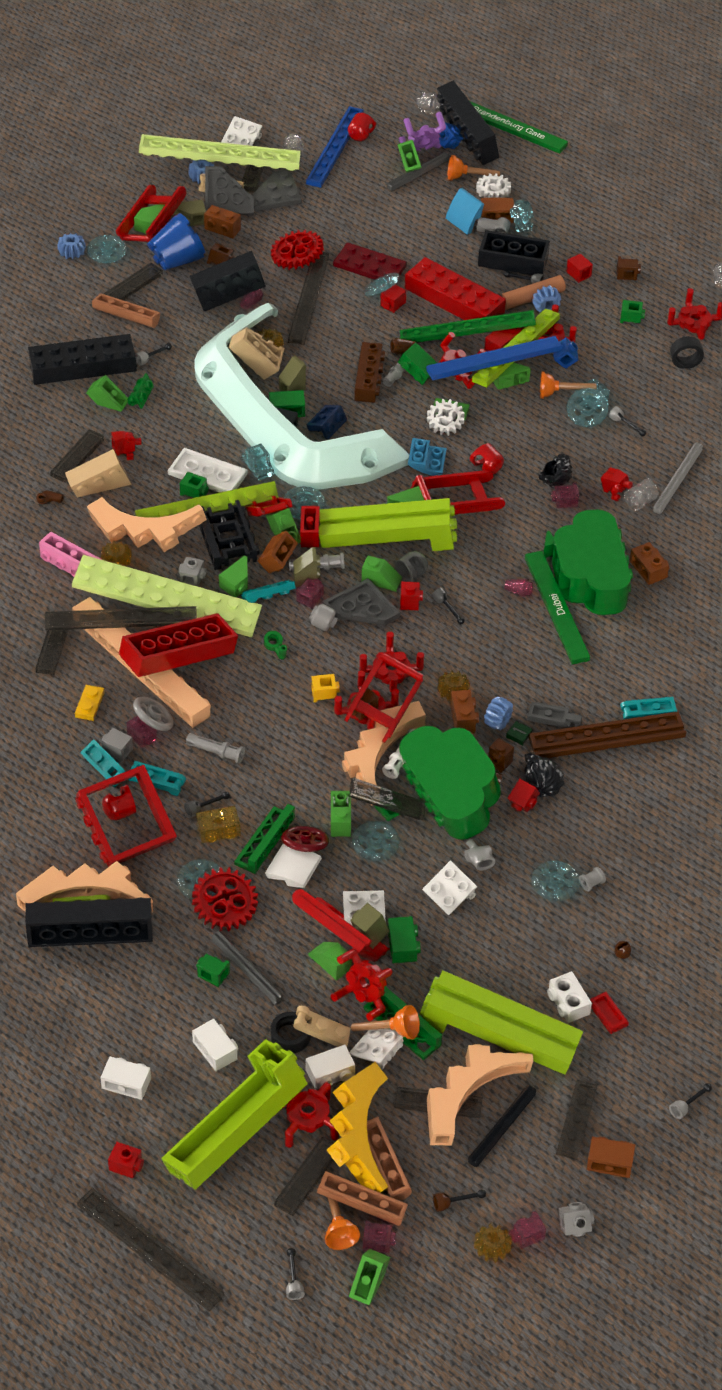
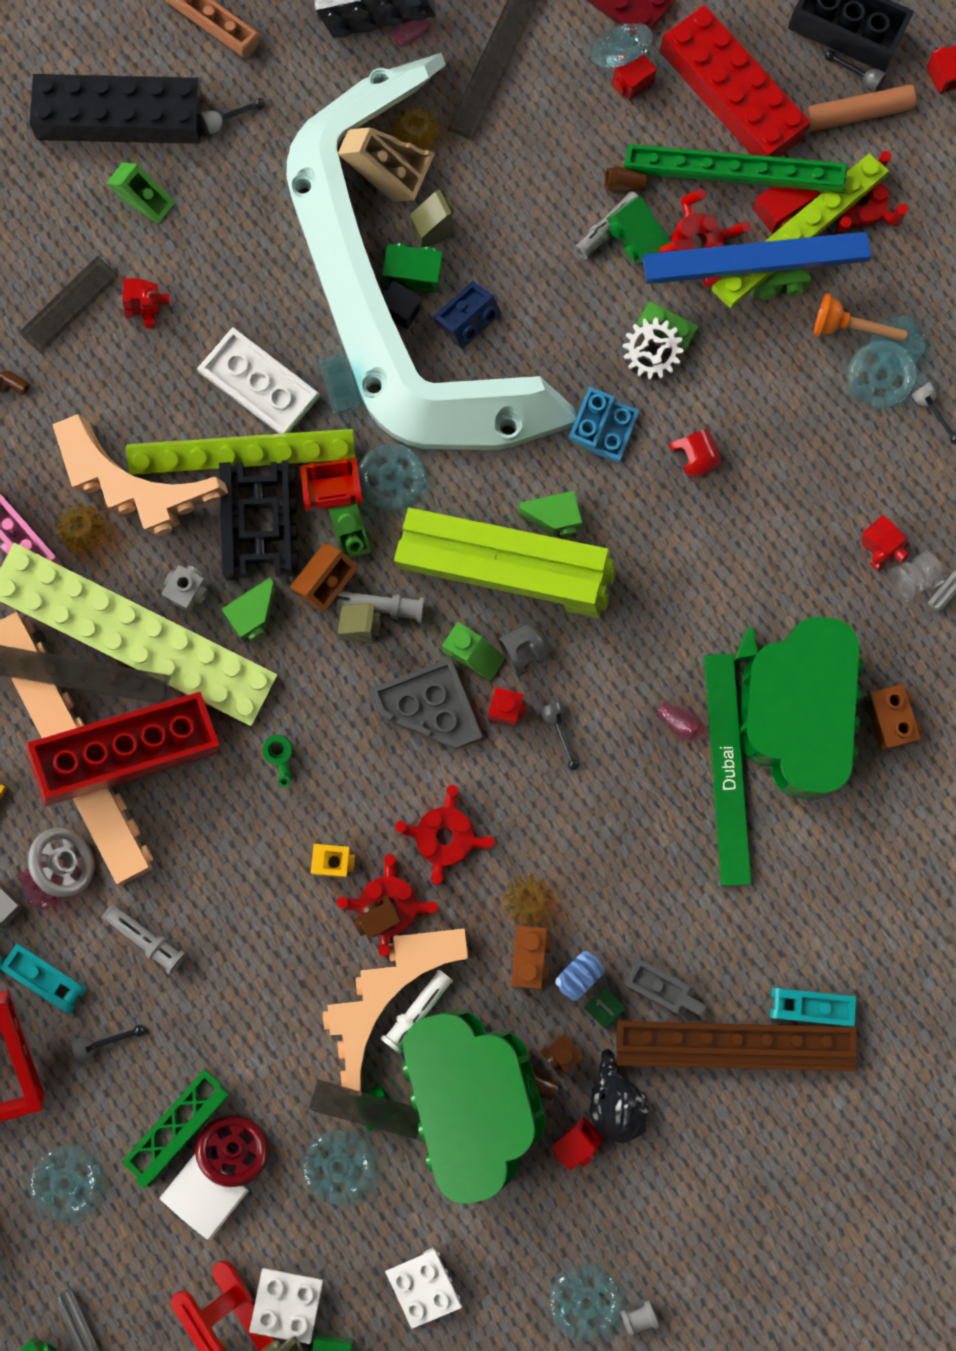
camera: 10 degrees right, 30 degrees up
(98, 475) = (87, 360): tan wedge -> none
(141, 391) = (200, 186): green hinge -> none
(193, 485) = (225, 402): green brick -> none
(218, 824) = (95, 1085): clear yellow brick -> none
(232, 914) = (95, 1264): red gear -> none
(268, 590) = (292, 648): teal plate -> none
(310, 526) = (384, 535): red brick -> none
(311, 588) = (357, 673): clear pink brick -> none
(323, 617) = (363, 720): light grey head -> none
(340, 814) = (294, 1116): bright green slope -> none
(368, 372) = (556, 226): reddish brown brick -> none
(375, 714) = (384, 956): red piece -> none
(473, 479) = (664, 503): red piece -> none
(479, 856) = (484, 1234): light grey piece -> none
(546, 298) = (877, 131): medium blue gear -> none
(557, 471) = (795, 503): black hair -> none
(566, 496) = (790, 557): clear pink brick -> none
(568, 354) = (883, 252): blue brick -> none

